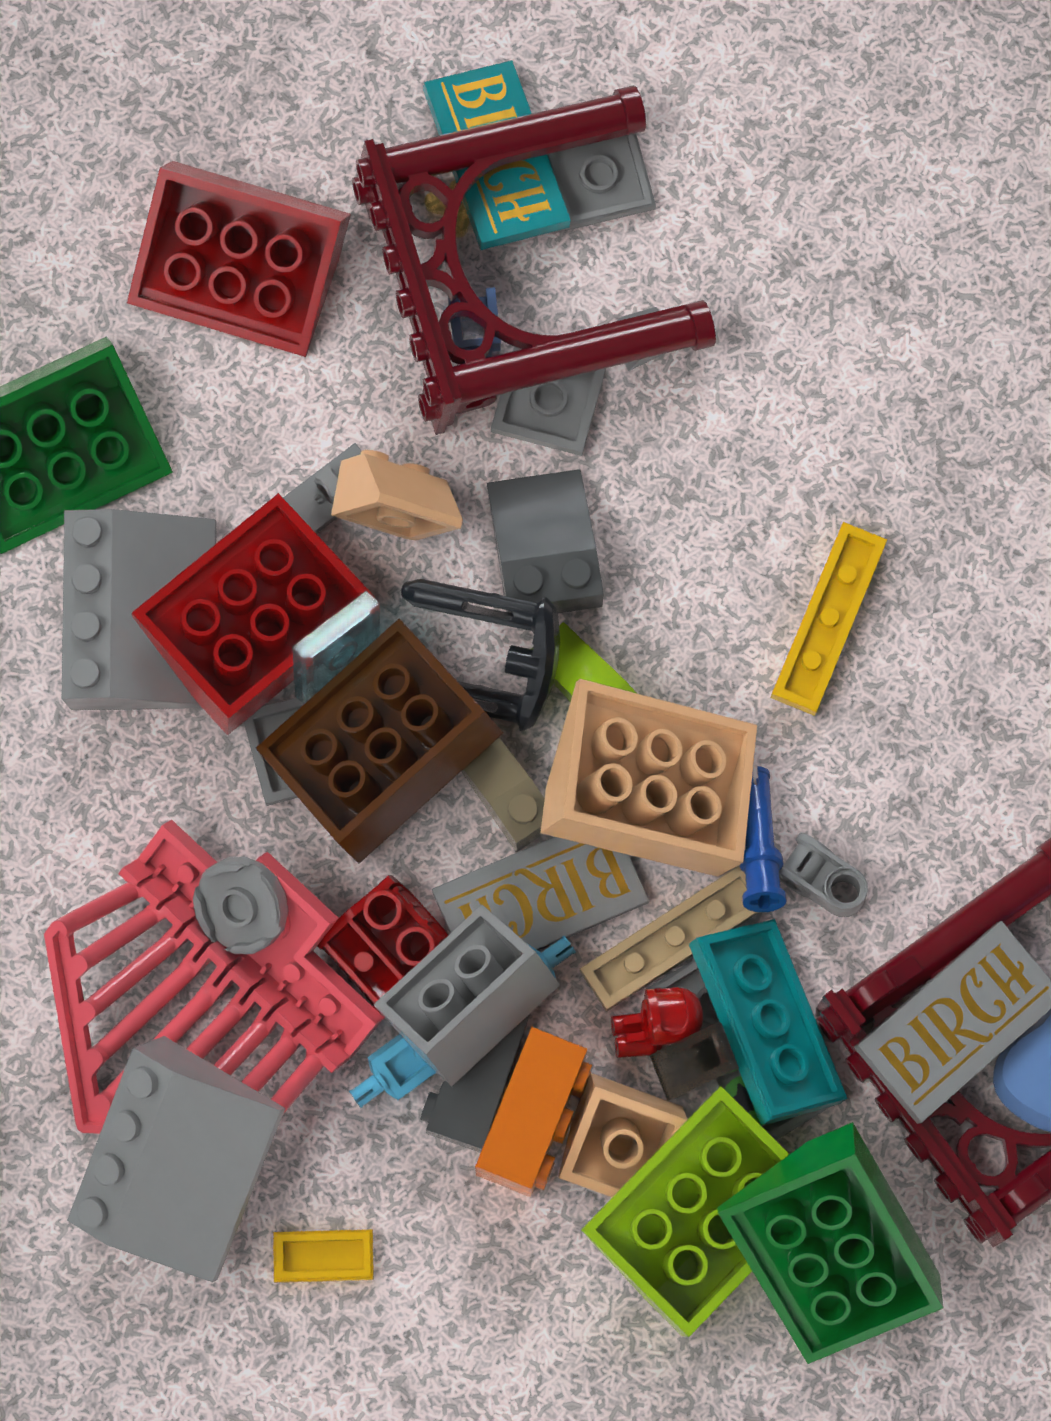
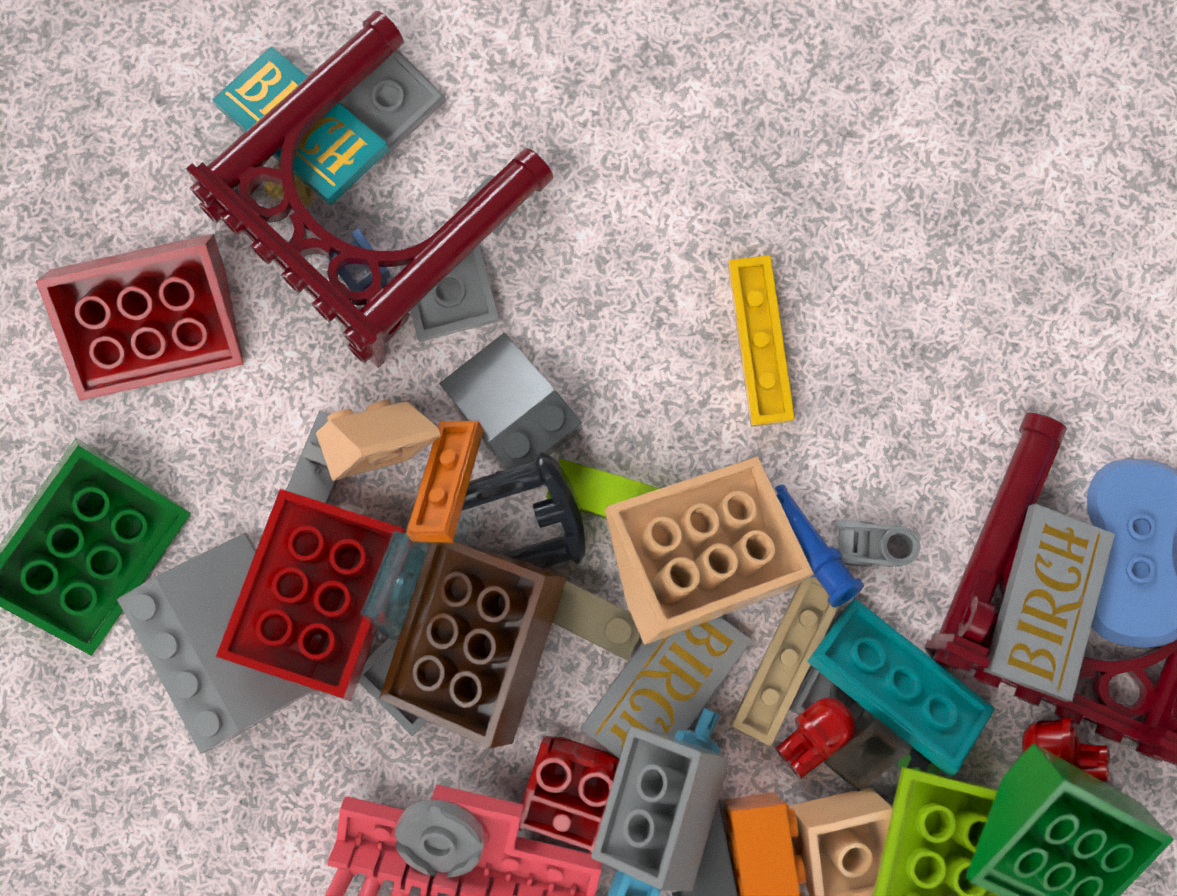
camera: 25 degrees left, 5 degrees up
(440, 573) = (445, 482): none -> orange tile
(898, 1165) = (1063, 741): none -> red piece

